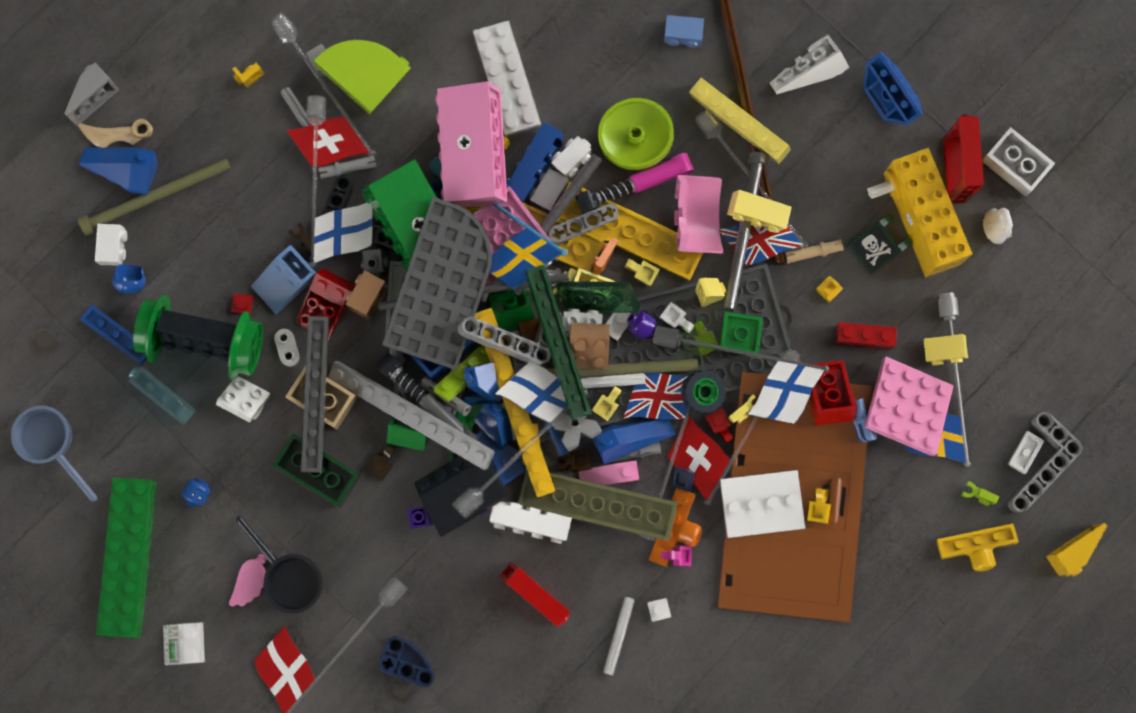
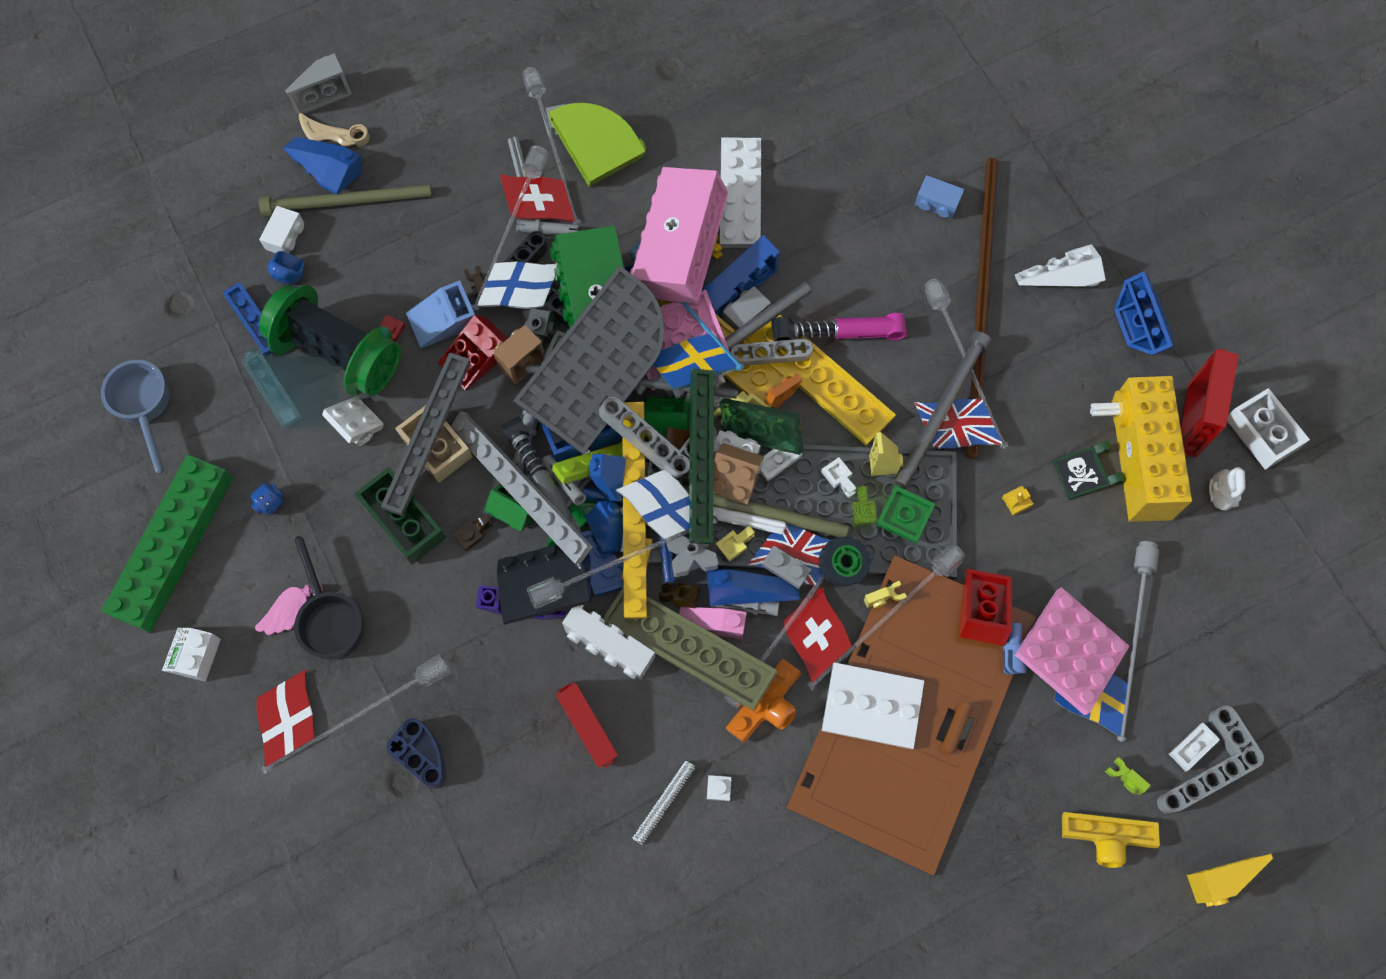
camera: 20 degrees right, 10 degrees down
(250, 75) = (482, 116): yellow bracket -> none
(286, 347) = (419, 383): white plate -> none
(576, 152) = (780, 283): white brick -> none
(635, 133) = (856, 280): lime dish -> none
(641, 324) = (799, 470): dark purple head -> none
(644, 273) = (820, 422): light yellow plate -> none
(656, 411) = (786, 567): none -> light grey plate
(681, 555) = (762, 732): dark pink plate -> none
(683, 478) = (792, 651): dark blue tile -> none
(698, 214) = (898, 378): bright pink panel -> none
(719, 423) = (852, 604): red plate -> none
(740, 121) = (972, 298): light yellow brick -> none
(759, 211) = (964, 391): light yellow brick -> none
(784, 389) = (936, 586): flag -> none
(814, 251) = (1008, 455): tan pin -> none
(819, 510) = (935, 732): yellow plate -> none
(865, 335) = (1044, 560): red brick -> none
(945, 349) = (1131, 601): light yellow brick -> none

